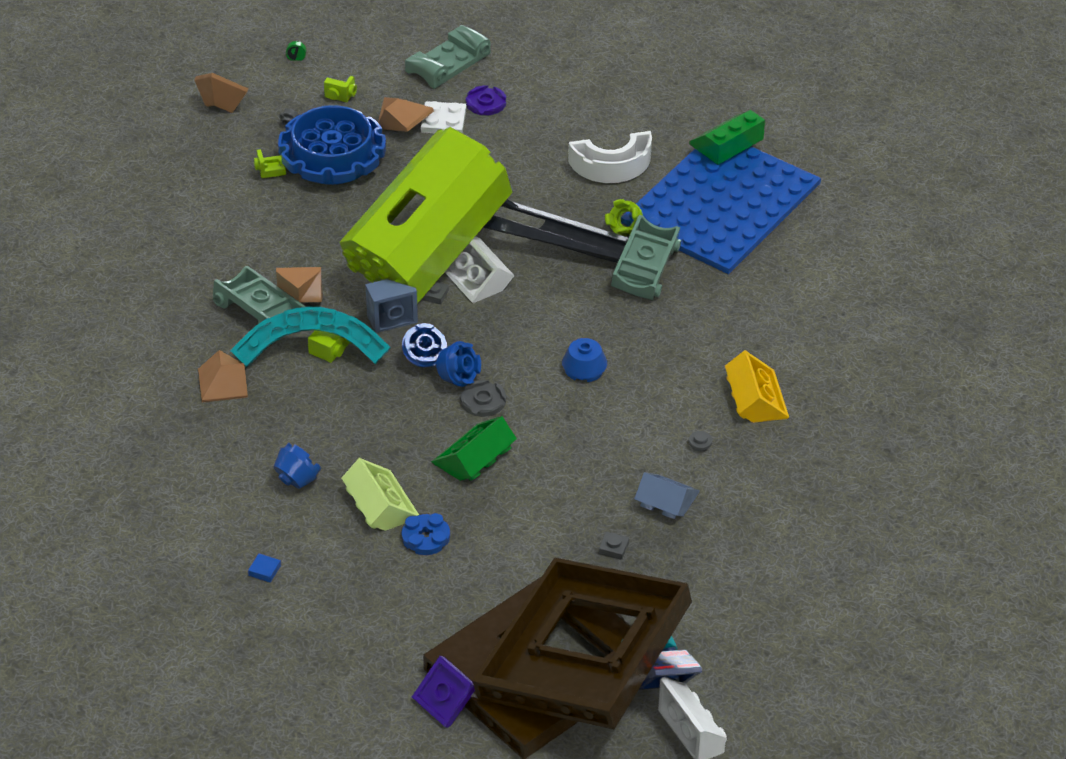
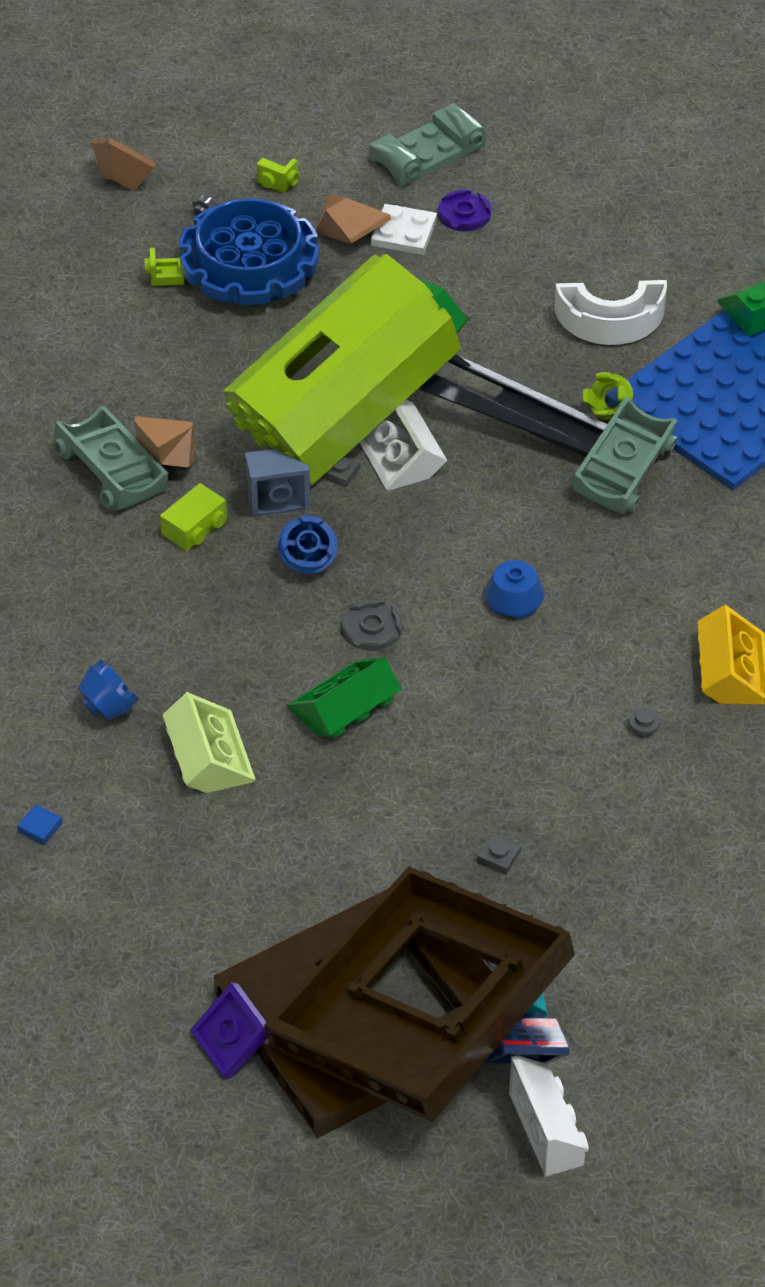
camera: 10 degrees right, 5 degrees up
(222, 378) = (42, 557): medium nougat slope -> none
(296, 51) = (232, 116): green tile -> none
(310, 319) = (163, 491): teal plate -> none
(433, 524) = (256, 790): blue plate -> none
(458, 364) = (347, 575): blue cone -> none
(665, 494) = (581, 792): sand blue slope -> none

